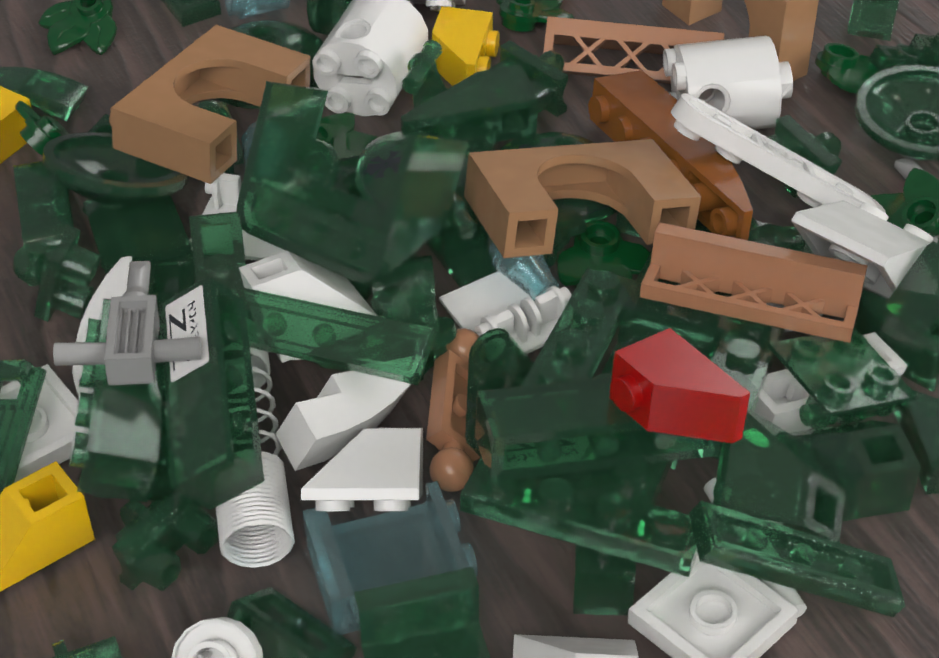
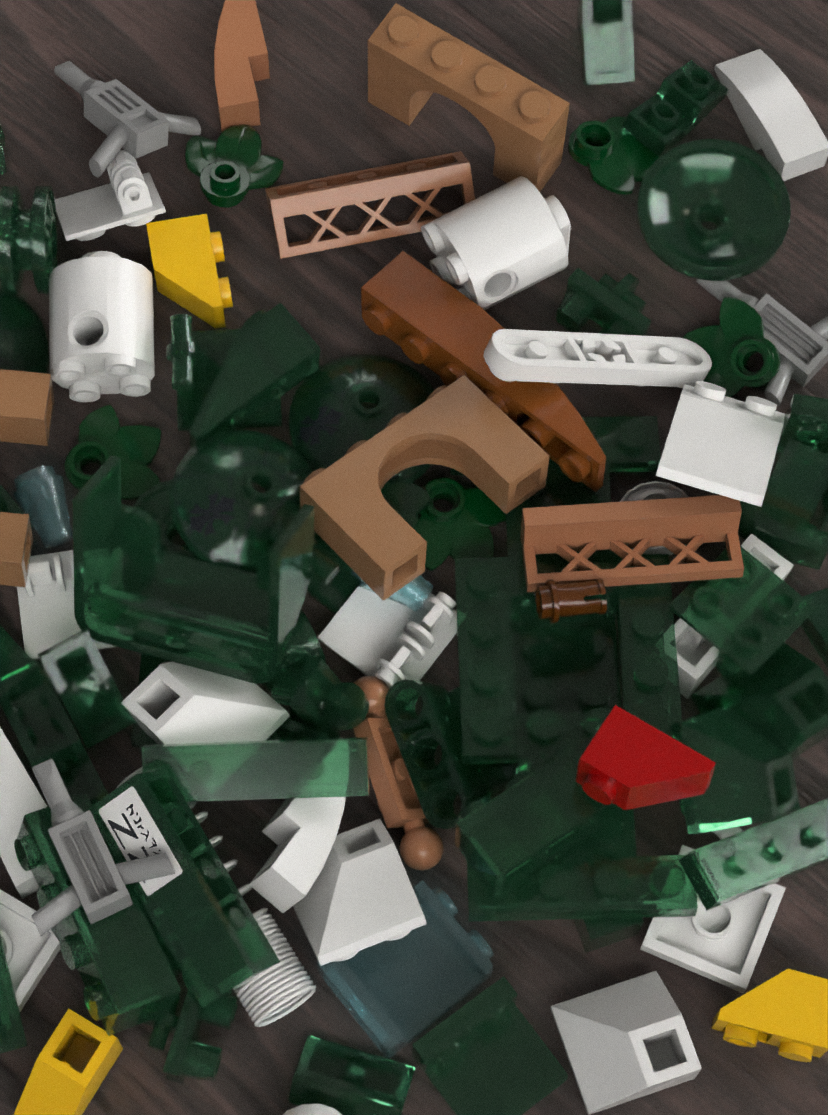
camera: 25 degrees left, 25 degrees up
(543, 72) = (282, 281): clear green hips -> none
(675, 304) = (568, 599): none -> reddish brown pin

